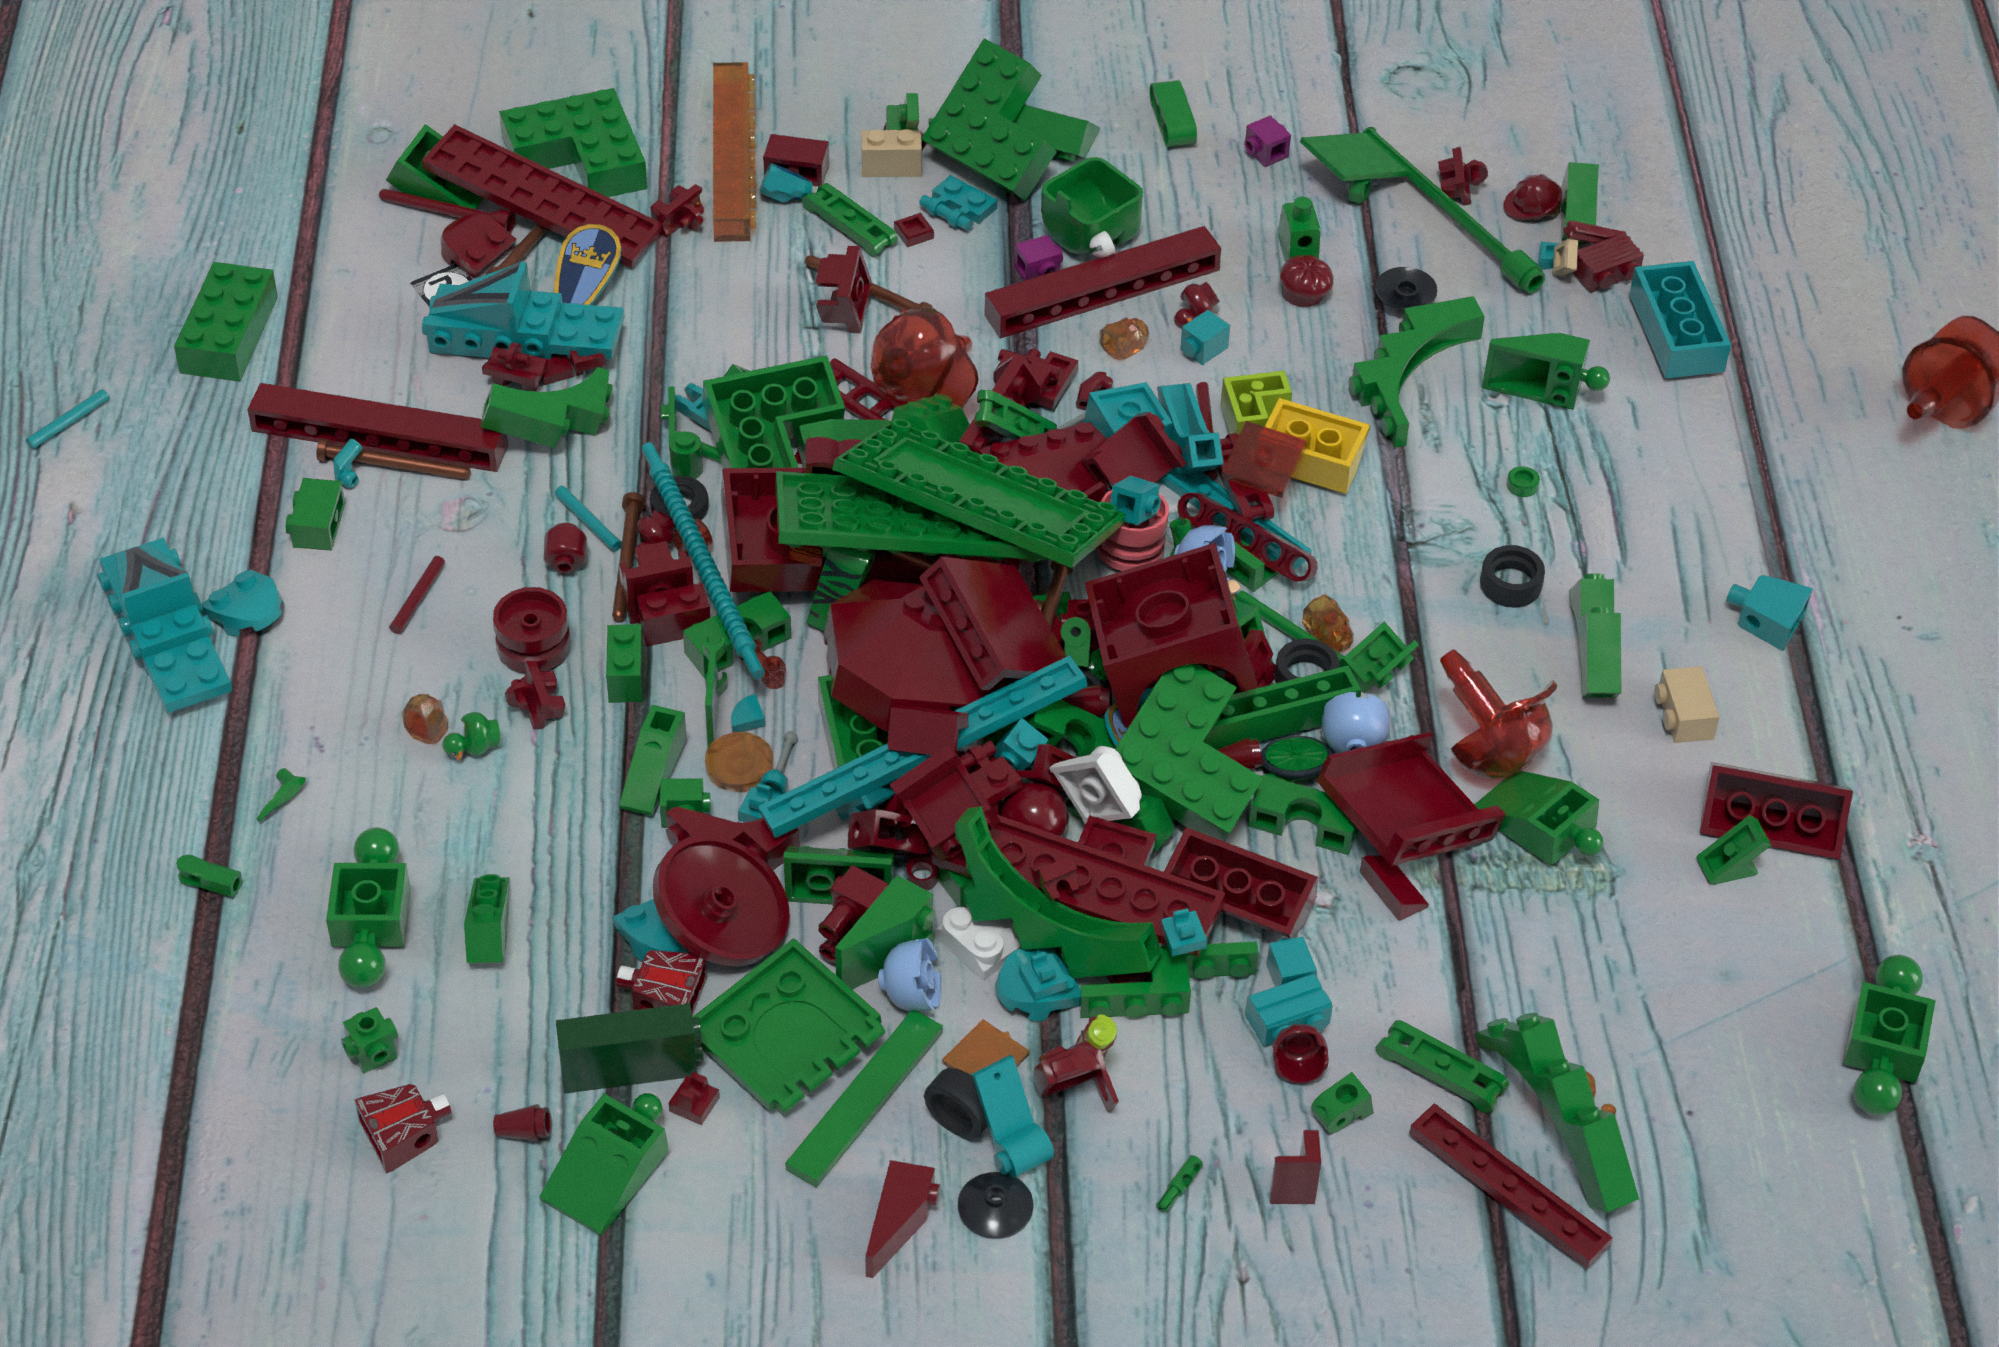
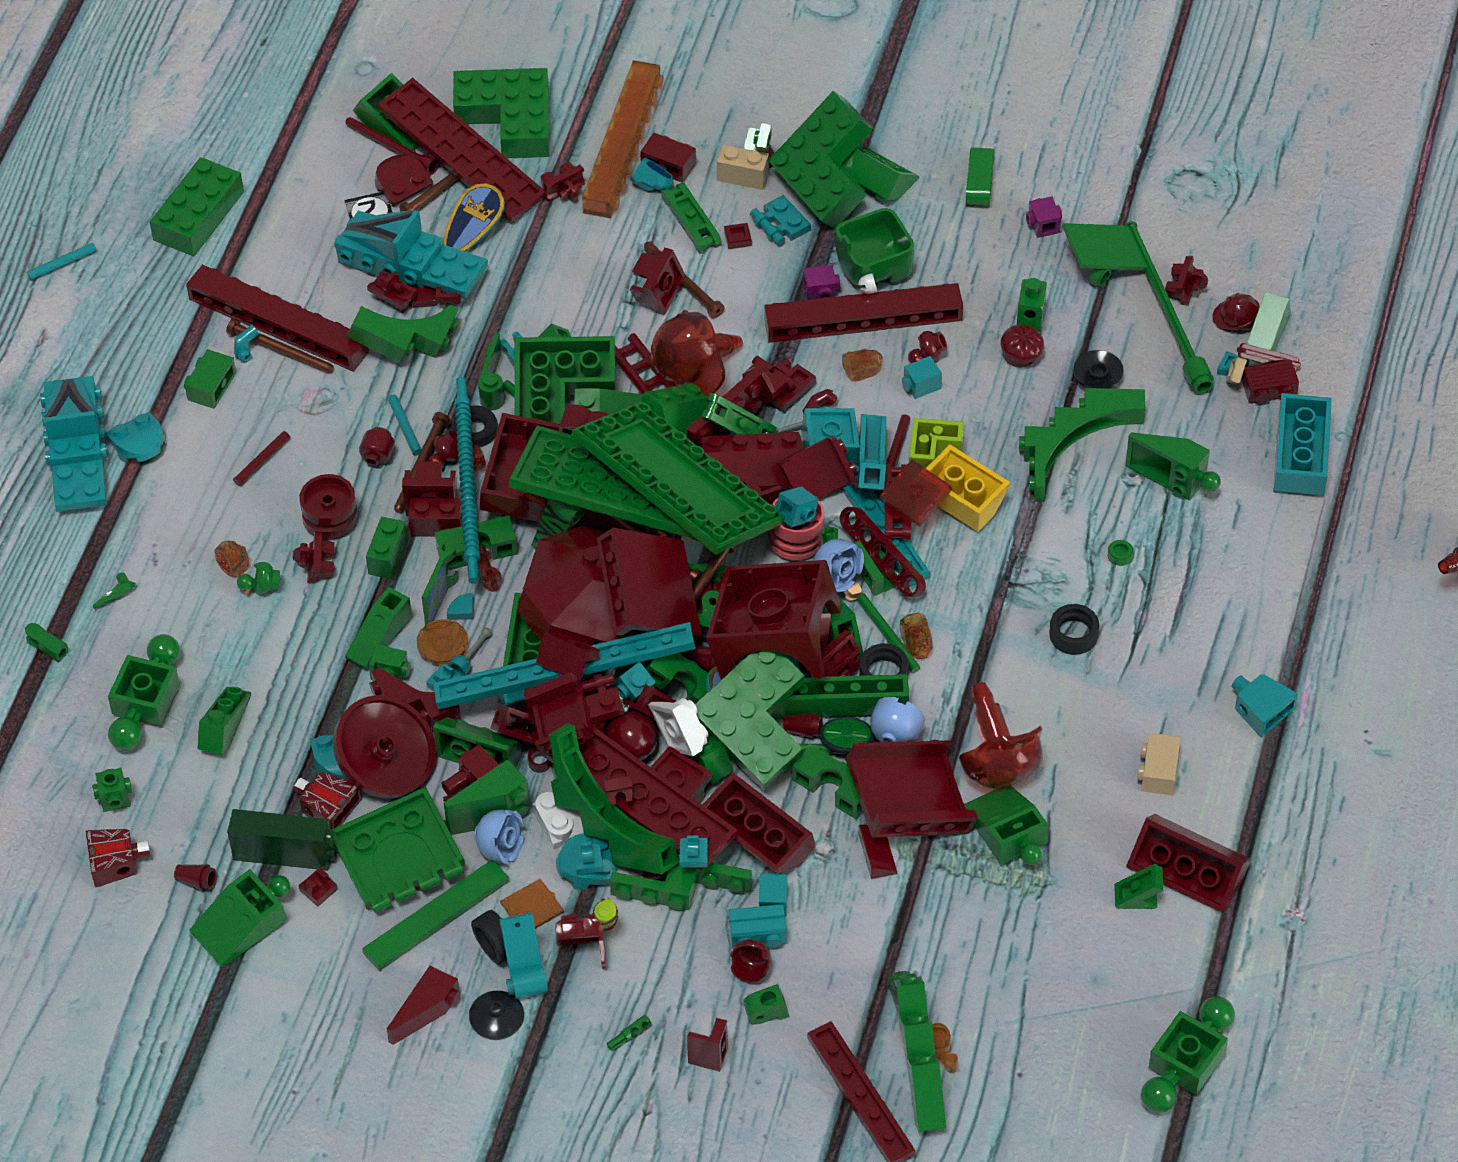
camera: 20 degrees right, 5 degrees up
(1377, 656) = (940, 669): green bracket -> none
(1443, 1065) = (852, 994): green plate -> none
(1598, 636) = (1112, 693): green arch -> none

